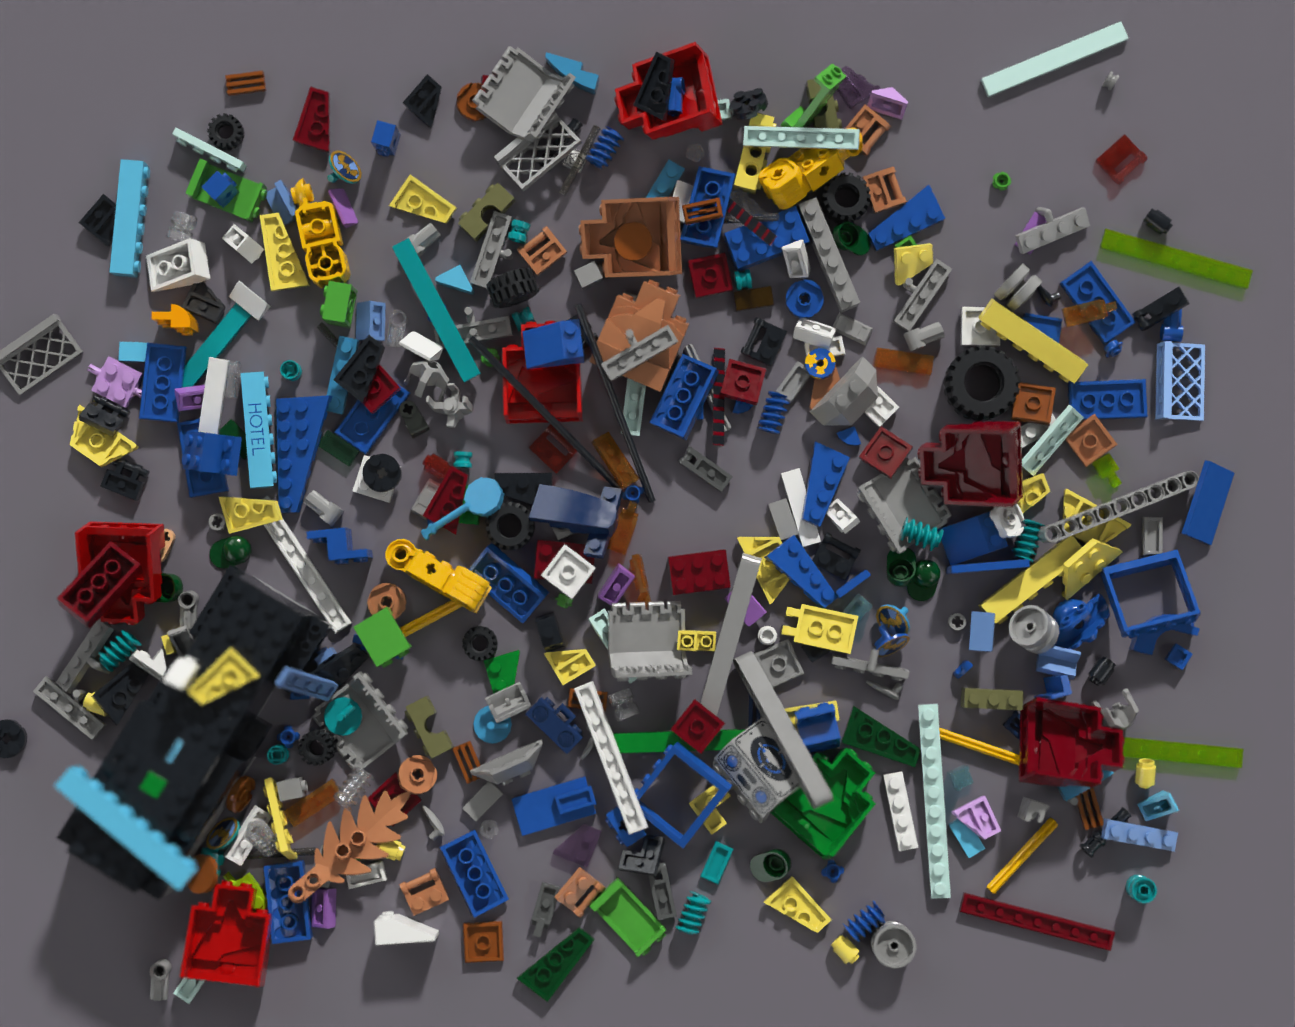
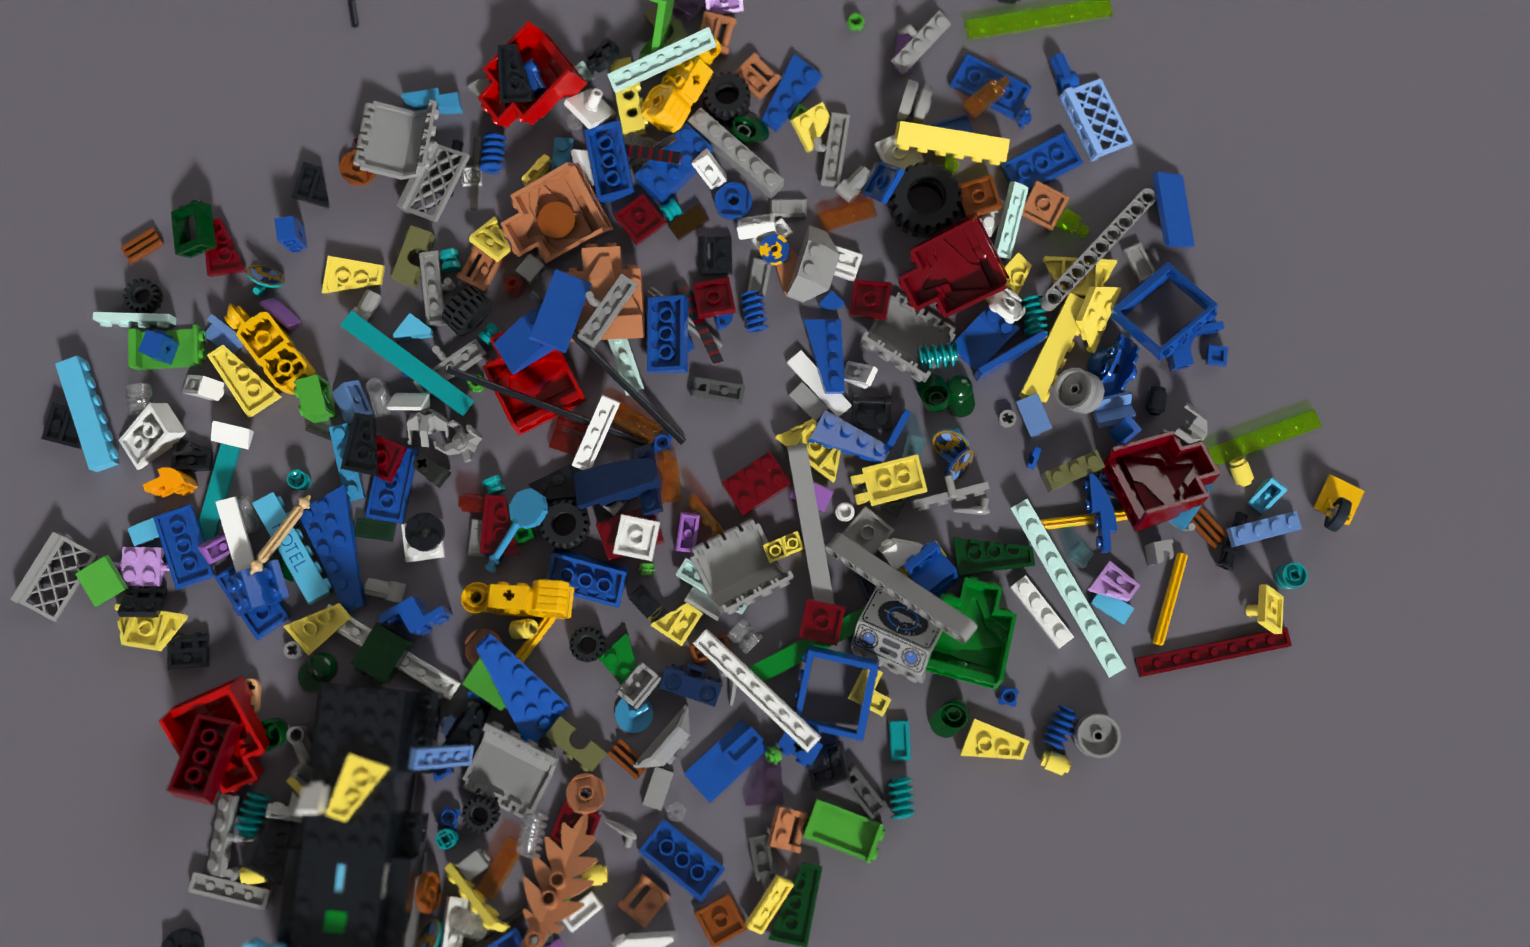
camera: 30 degrees left, 5 degrees down
(76, 378) = (101, 580): none -> bright green tile
(220, 434) = (280, 534): none -> tan wheel
(294, 564) = (381, 654): none -> dark green brick
(310, 94) = (203, 225): none -> dark green window
(343, 716) = (491, 773): teal shield -> none
(403, 662) = (524, 694): none -> blue wing
(429, 602) = (523, 628): none -> light yellow brick
(532, 949) = (769, 904): none -> light yellow tile
(565, 230) = (491, 240): none -> light yellow wing
(568, 289) = (516, 290): none -> clear red brick
(576, 457) = (595, 433): none -> white plate
(596, 333) = (560, 311): none -> blue tile
(598, 821) = (773, 754): none -> bright green plate
(600, 656) = (703, 603): none -> light grey tile
(621, 78) = (478, 86): none -> light grey tile
(637, 186) = (538, 170): none -> light yellow wing
(702, 218) = (609, 171): dark orange tile -> none
(714, 148) = (590, 108): none -> white tile
(798, 695) = (897, 551): none -> white slope
(950, 349) = (883, 182): none -> blue tile
(1000, 740) = (1099, 504): none -> blue slope
(1019, 359) = (947, 165): none -> clear neon green hinge
(1047, 298) = (943, 101): black bar -> none
(1105, 909) = (1269, 609): none -> light yellow tile
(1161, 308) = (1048, 64): black plate -> none
(1219, 844) = (1338, 502): none -> yellow plate

